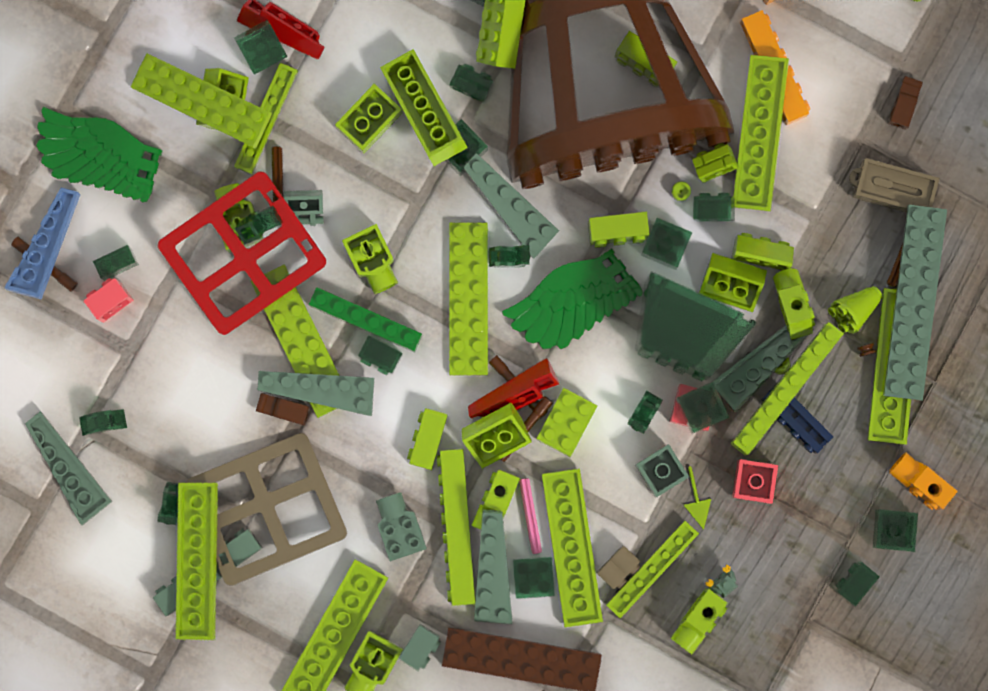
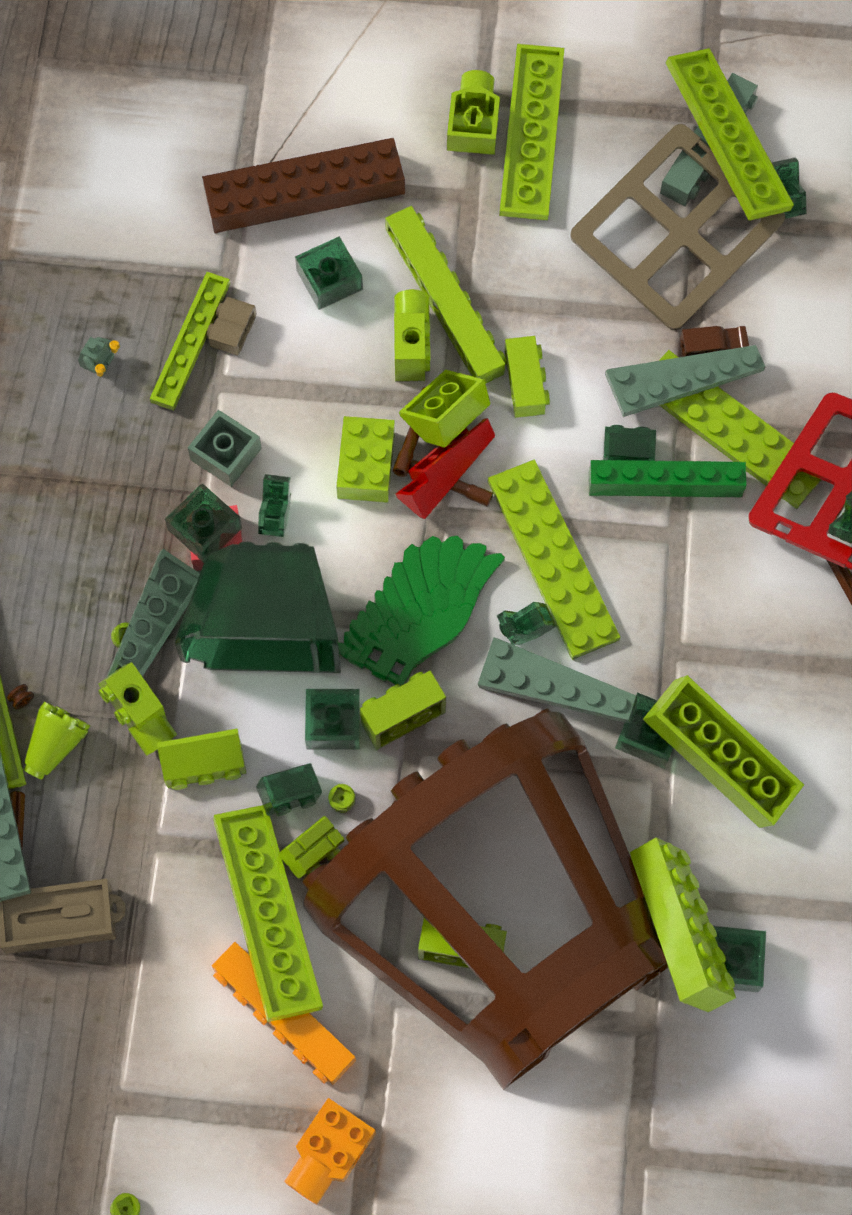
camera: 160 degrees right, 15 degrees down
(306, 203) = (811, 581): sand green brick -> none
(368, 118) = (787, 716): lime brick -> none
(371, 258) = (696, 551): lime brick -> none
(399, 528) = (511, 266): sand green brick -> none
(419, 648) = (427, 149): sand green brick -> none
(471, 83) = (676, 821): clear green brick -> none
(493, 588) = (380, 256): sand green wing -> none
(530, 516) = (363, 343): bright pink axle -> none
(572, 548) = (298, 328): lime plate -> none
(695, 625) = (110, 299): lime brick -> none
(698, 509) = (162, 431): lime piece -> none
(733, 282) = (227, 708): lime slope -> none
(755, 481) = (103, 481): coral brick -> none
(786, 388) = (104, 597): lime brick -> none
(803, 426) = (80, 578): dark blue brick -> none
(905, 103) = (84, 1041): reddish brown piece -> none

